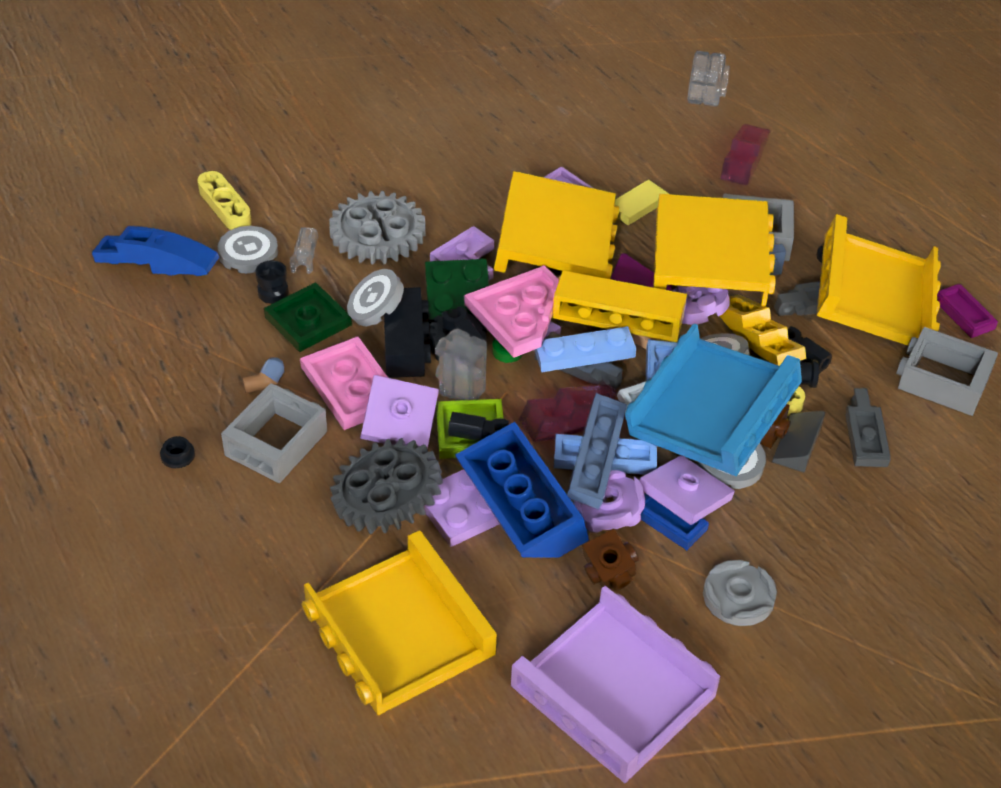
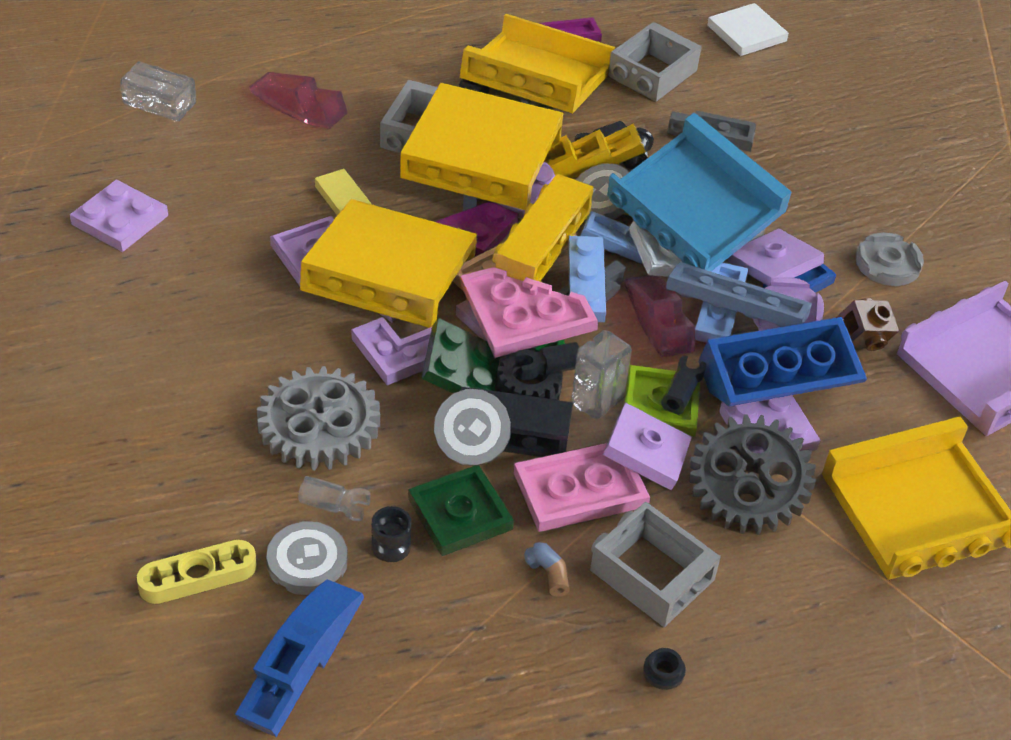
camera: 80 degrees left, 0 degrees up
(559, 94) = (119, 215): none -> lavender plate

